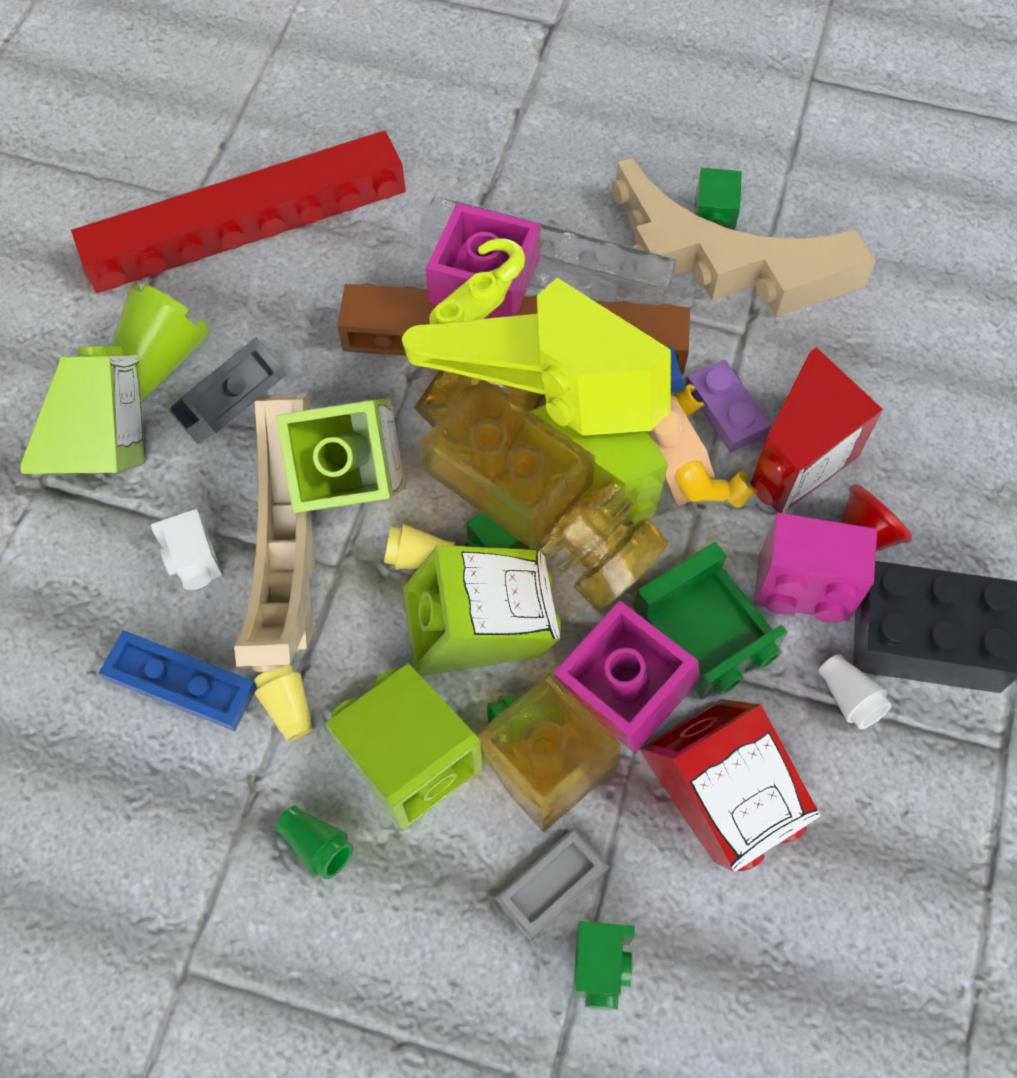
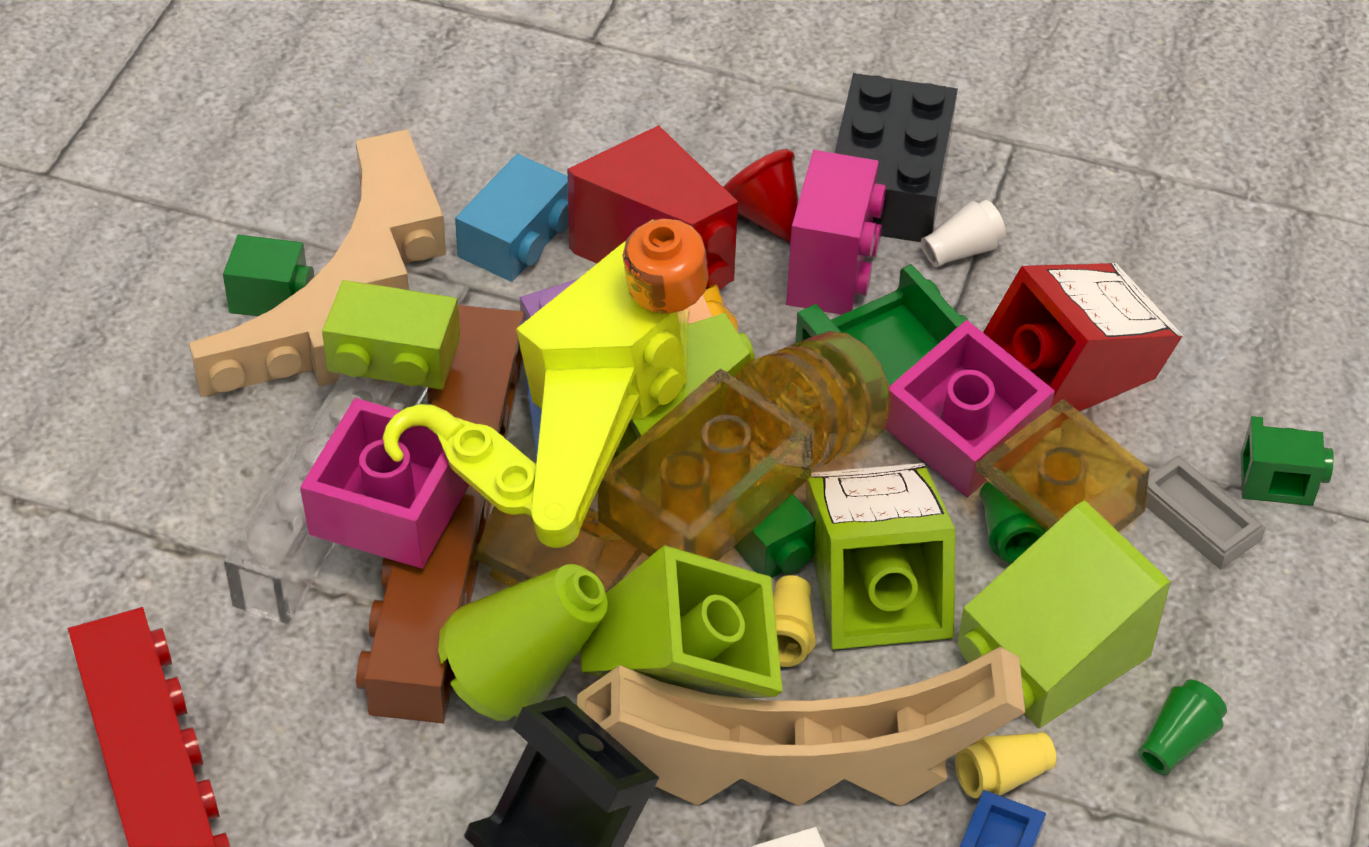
camera: 90 degrees left, 15 degrees down
(383, 352) = (521, 639): none -> lime cone
(590, 345) = (665, 266): none -> orange head
(620, 251) = (391, 334): none -> lime brick
(798, 331) = (513, 218): none -> dark azure brick

